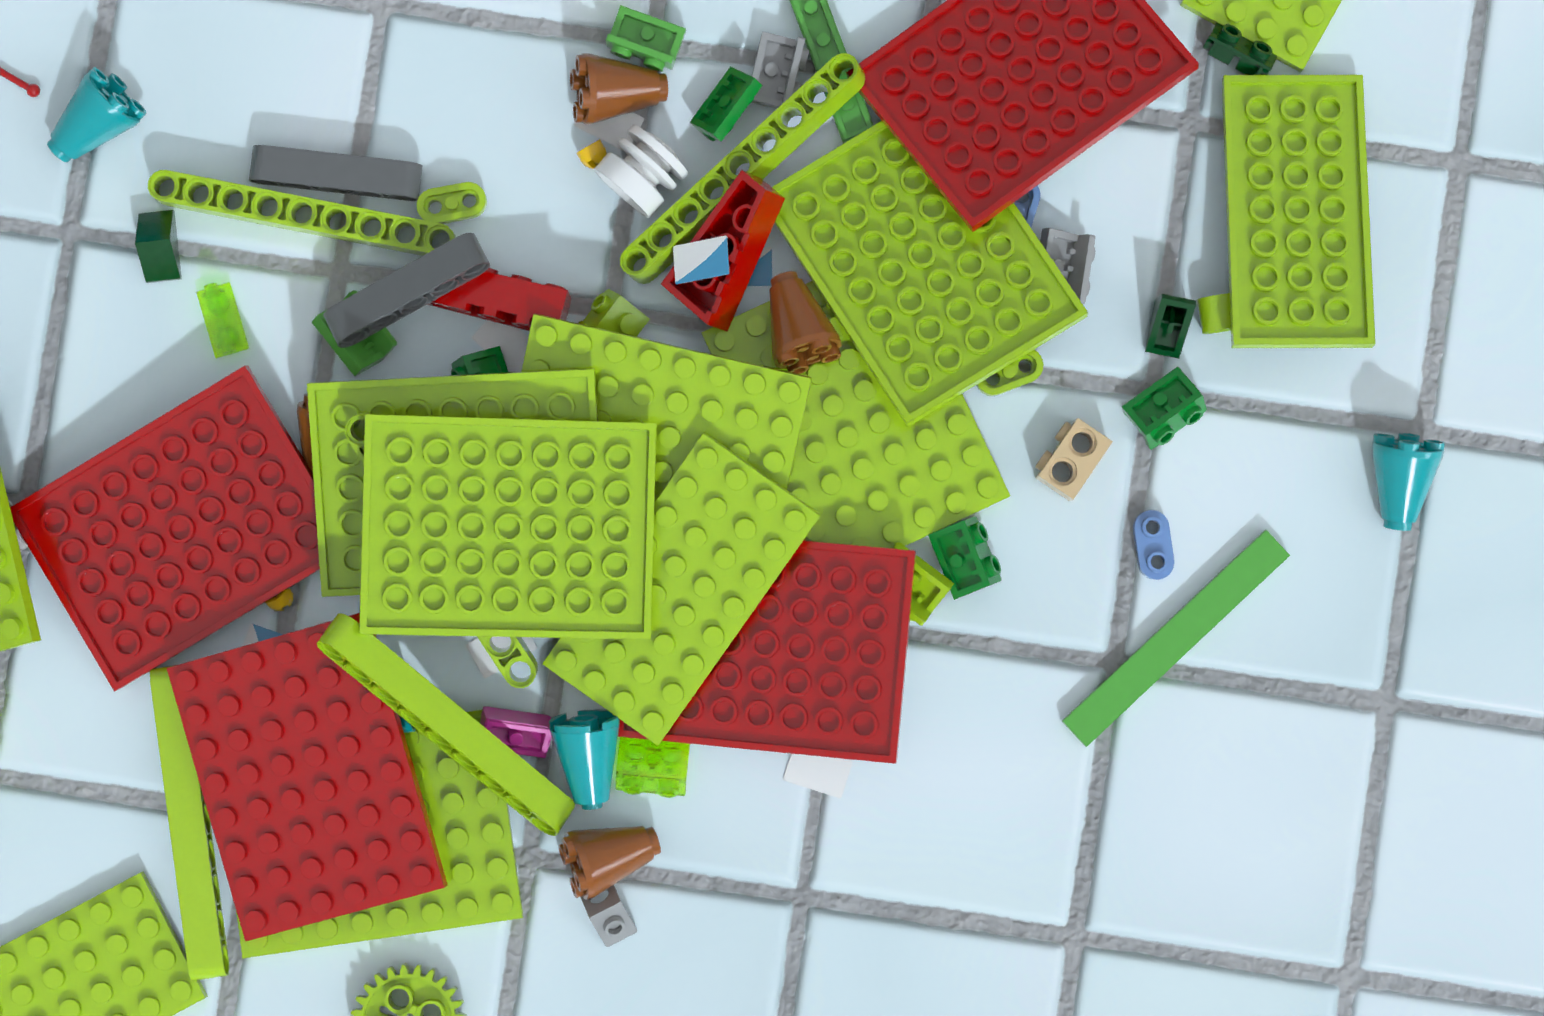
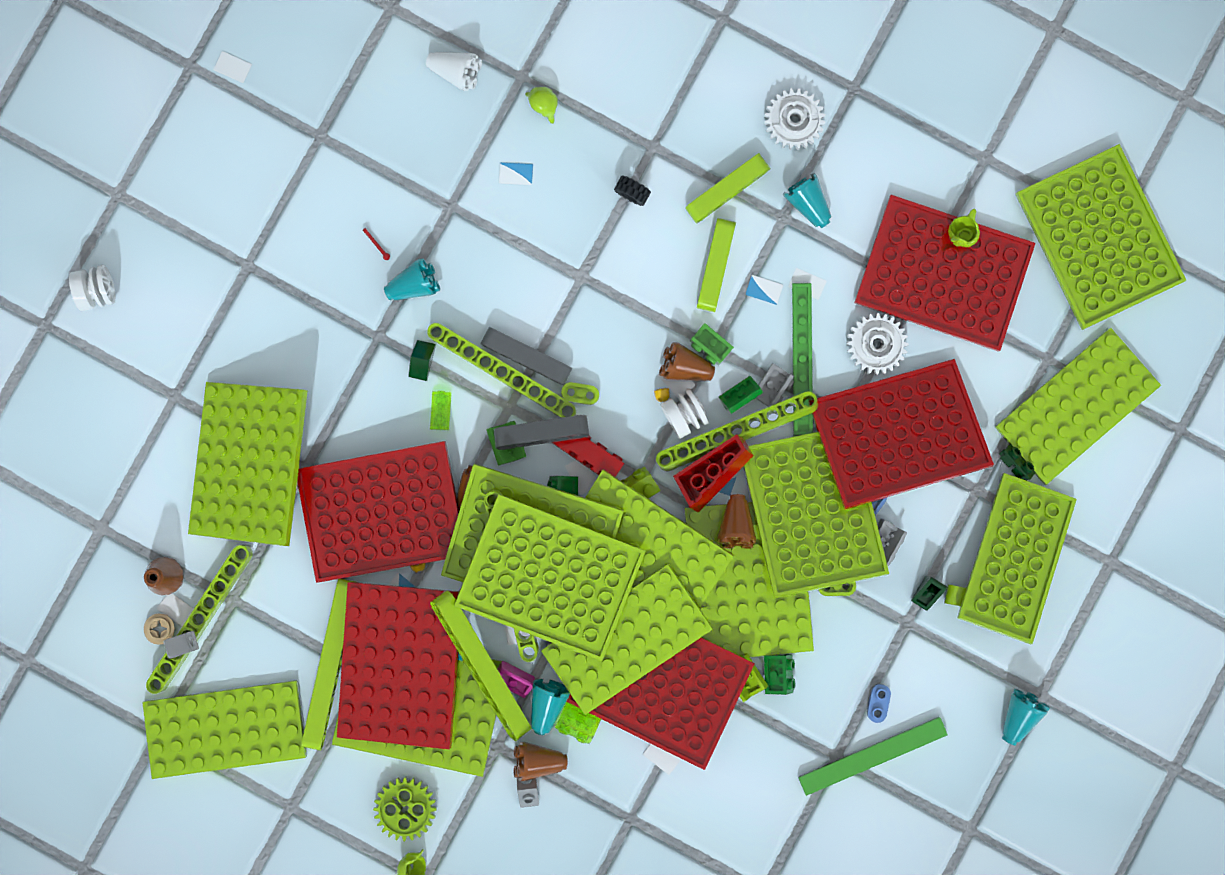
camera: 25 degrees right, 0 degrees up
(701, 260) = (698, 472): sticker -> none
(1079, 464) = (855, 648): tan brick -> none
(1165, 408) = (911, 634): green bracket -> none

